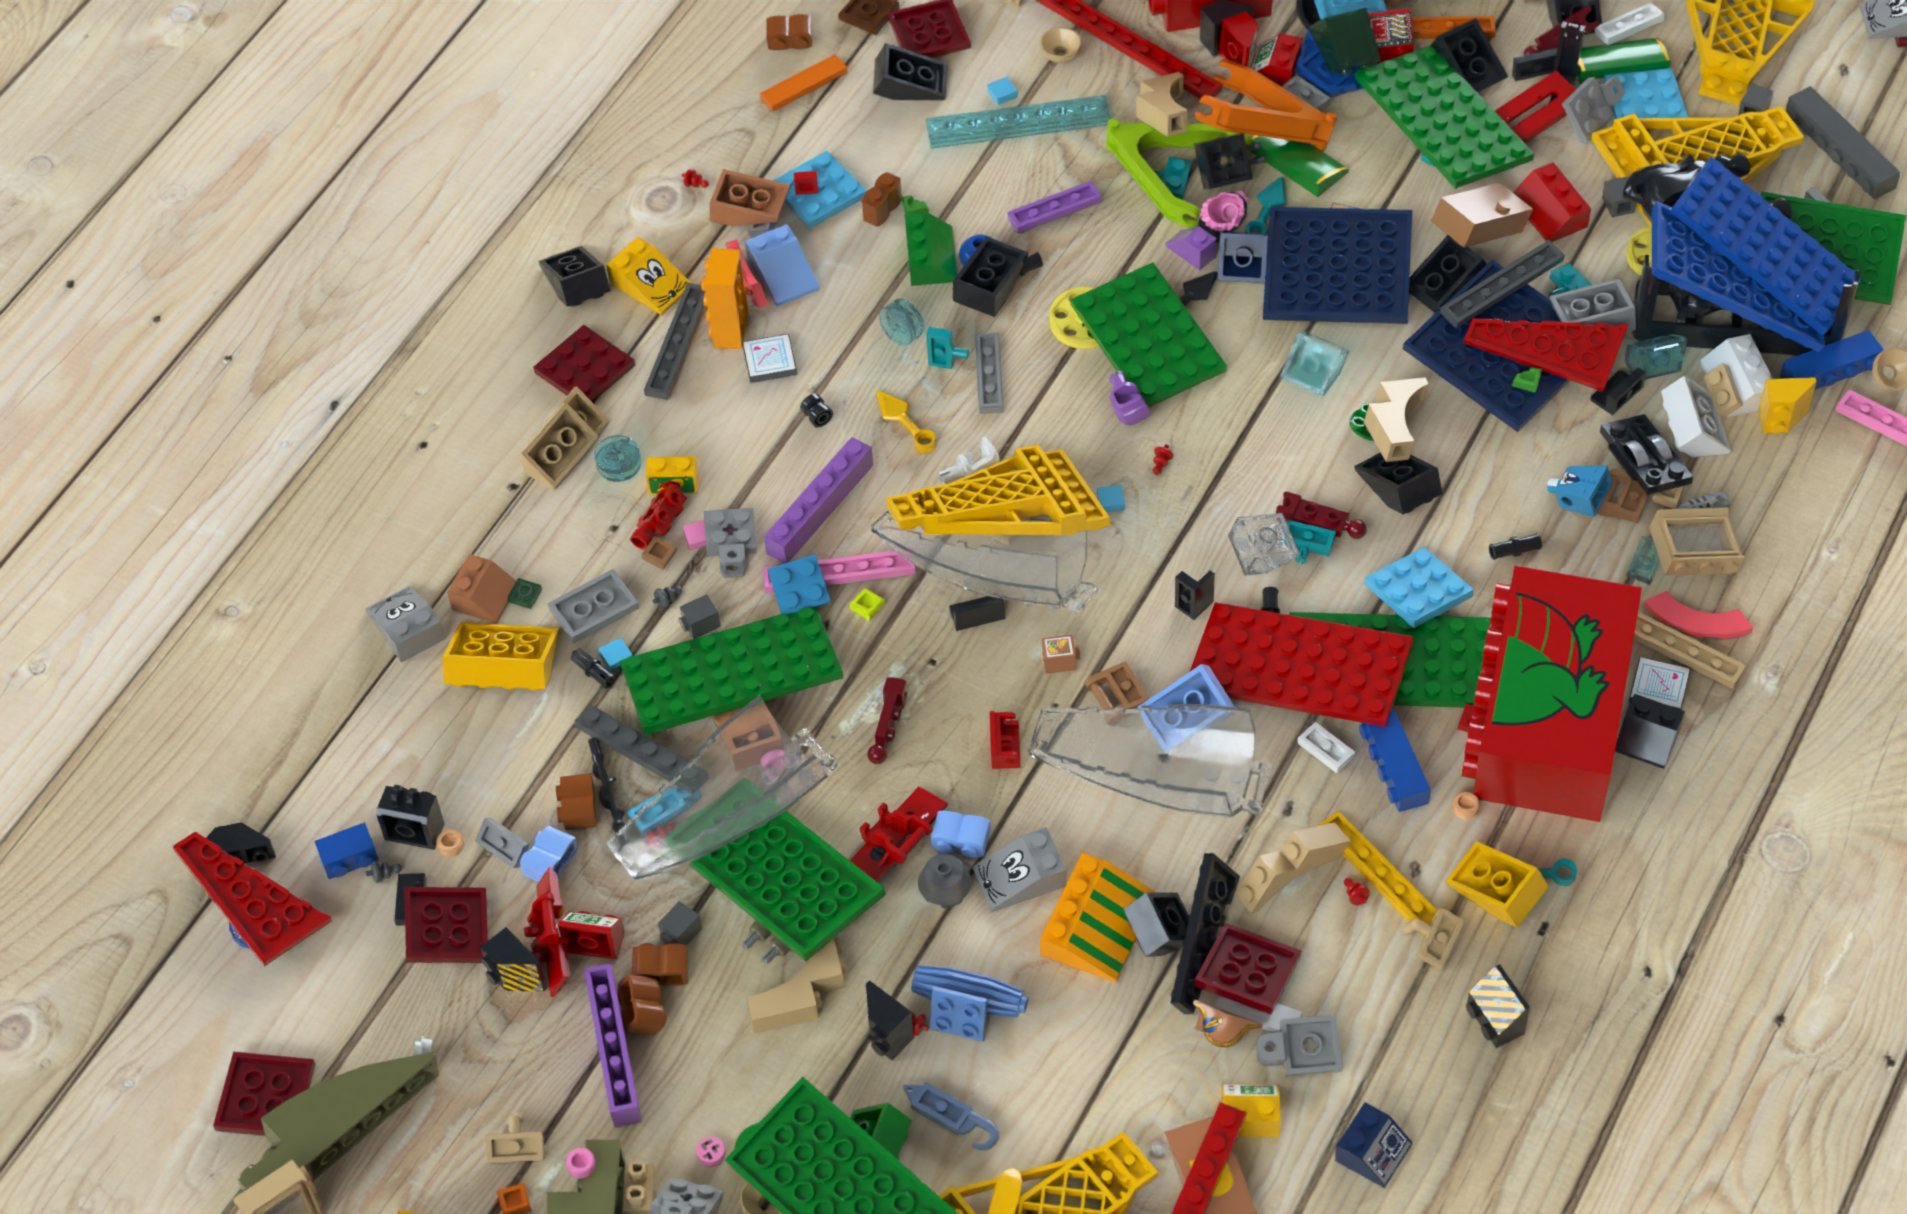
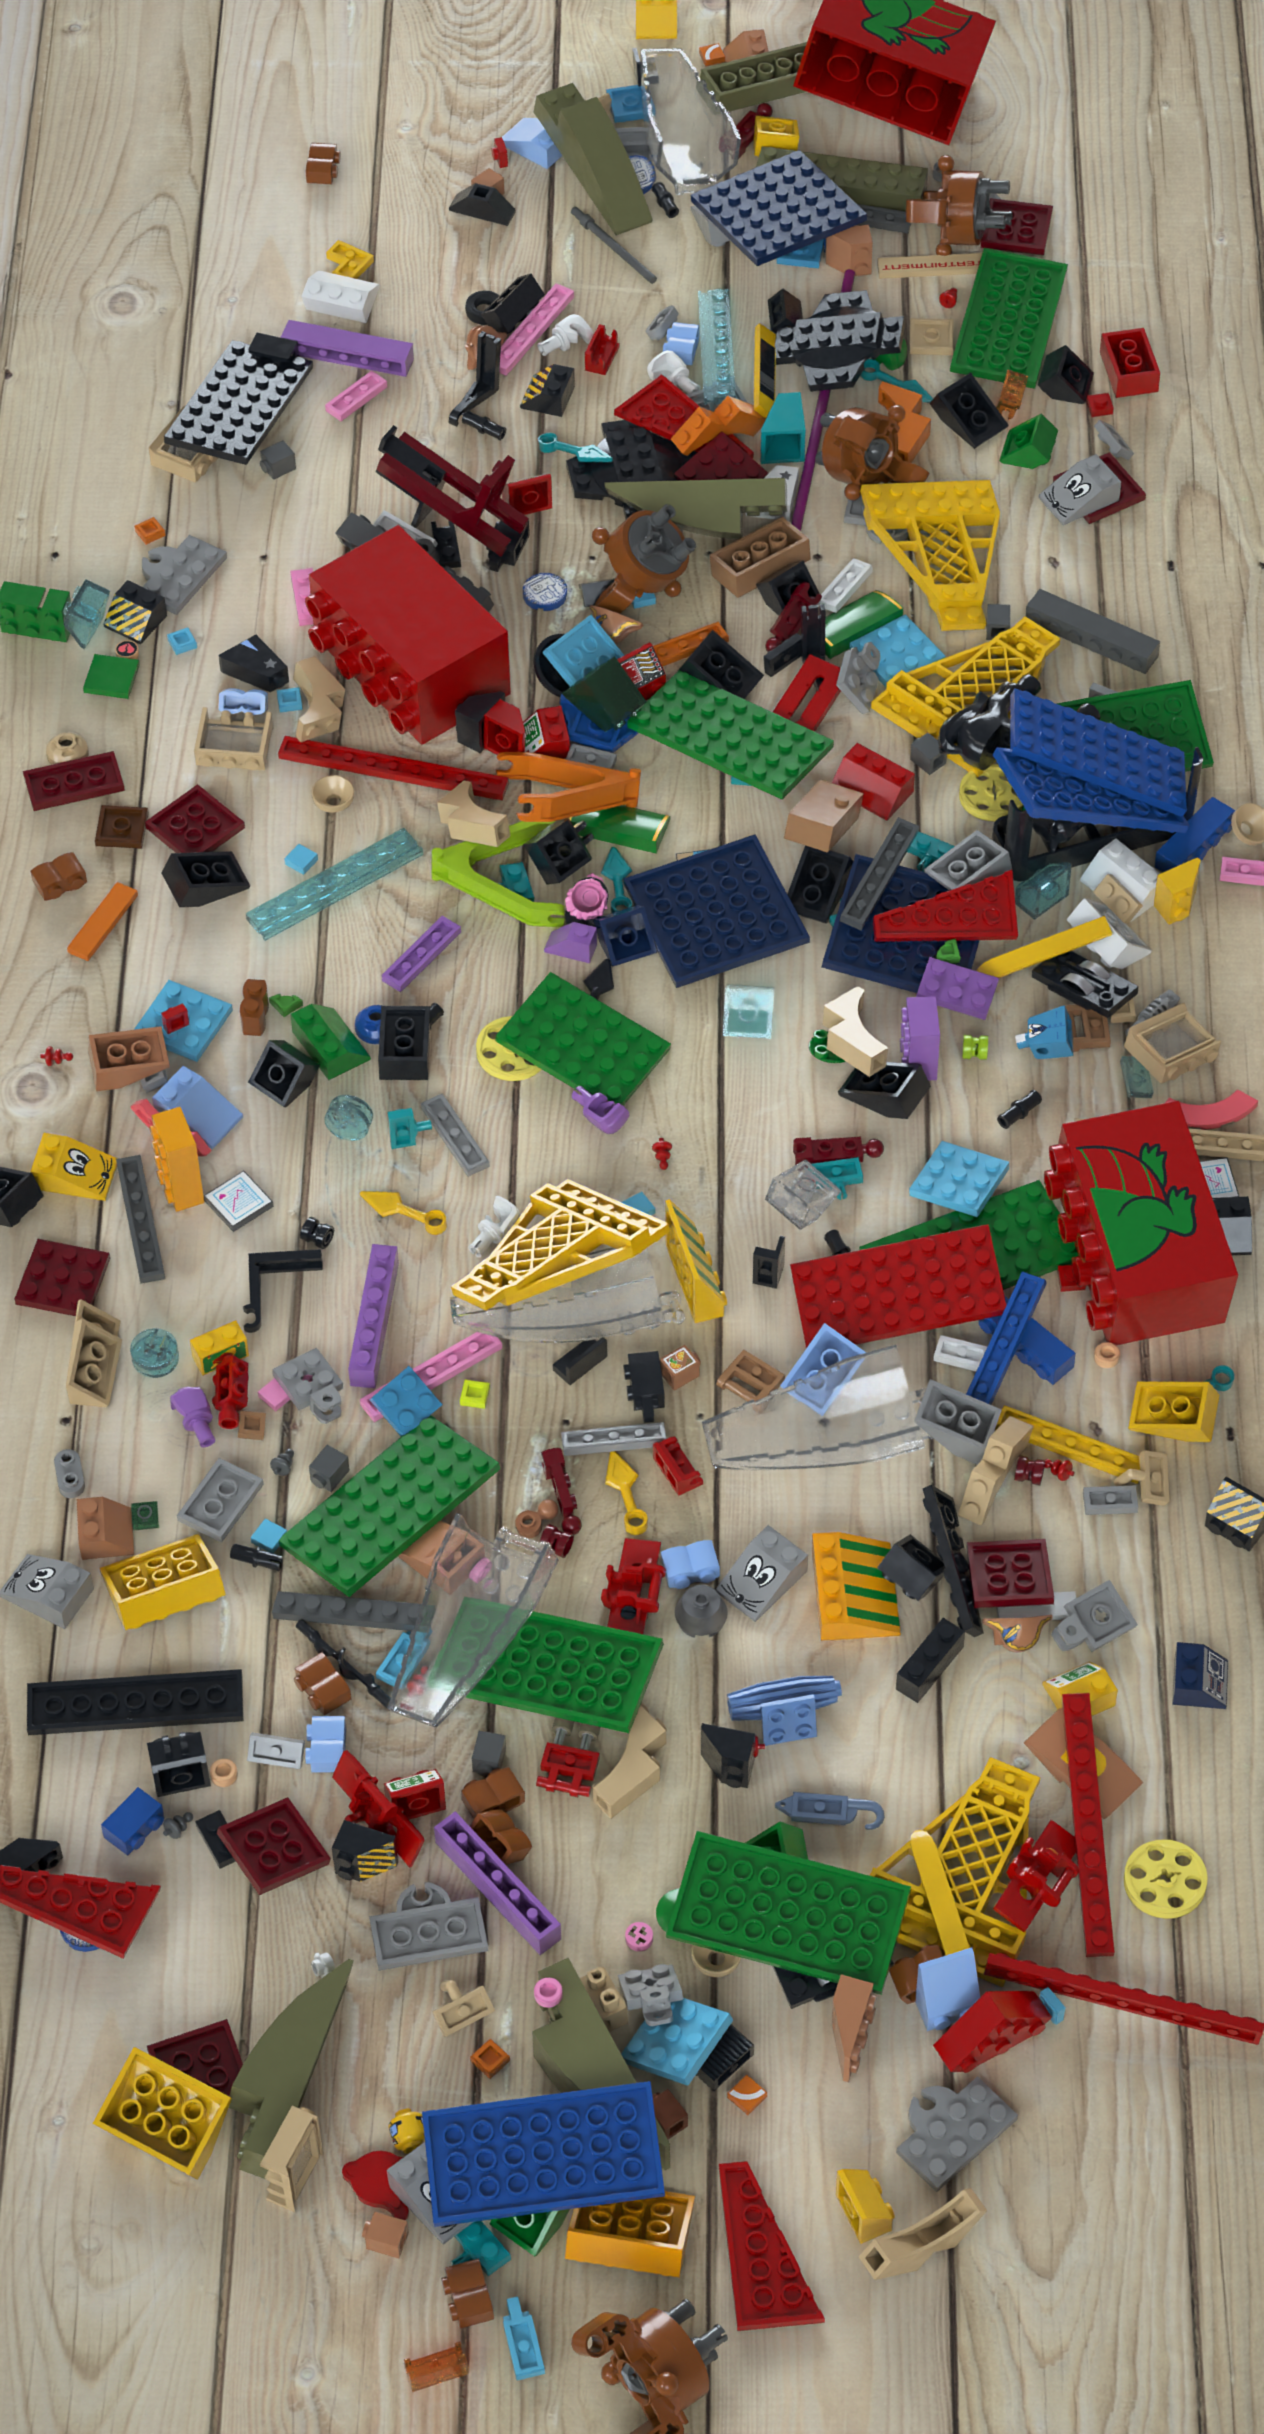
camera: 30 degrees left, 0 degrees up
(200, 1118) = (164, 2112): none -> yellow slope
(415, 749) = (135, 1702): none -> black plate
(486, 529) = (69, 1471): none -> light grey plate
(531, 1059) = (427, 1929): none -> light grey plate
(617, 522) = (194, 1406): none -> medium lavender piece
(745, 965) = (569, 1762): none -> red plate
(761, 420) = (275, 1263): none -> black hinge
(853, 760) = (560, 1541): none -> dark red wheel
(864, 732) = (547, 1510): none -> nougat plate
(873, 262) = (283, 1072): none -> black slope
(948, 731) = (622, 1477): none -> yellow piece
(961, 693) = (612, 1438): none -> light grey tile
(1019, 656) = (646, 1383): none -> black hinge
(1123, 565) = (693, 1266): none -> yellow slope
(1125, 1016) = (930, 1660): none -> black brick
(1277, 803) = (957, 1421): none -> light grey slope
(1325, 880) = (1029, 1470): none -> dark red wheel
(1364, 753) = (1006, 1338): none -> blue plate
(1386, 941) = (1110, 1500): none -> light grey plate
(1453, 442) = (921, 1034): none -> medium lavender brick
(1506, 474) = (975, 1047): none -> lime wheel
(1518, 414) = (958, 988): none -> medium lavender plate
(1619, 390) = (1028, 929): black panel -> none
(1621, 409) = (1046, 948): none -> yellow piece

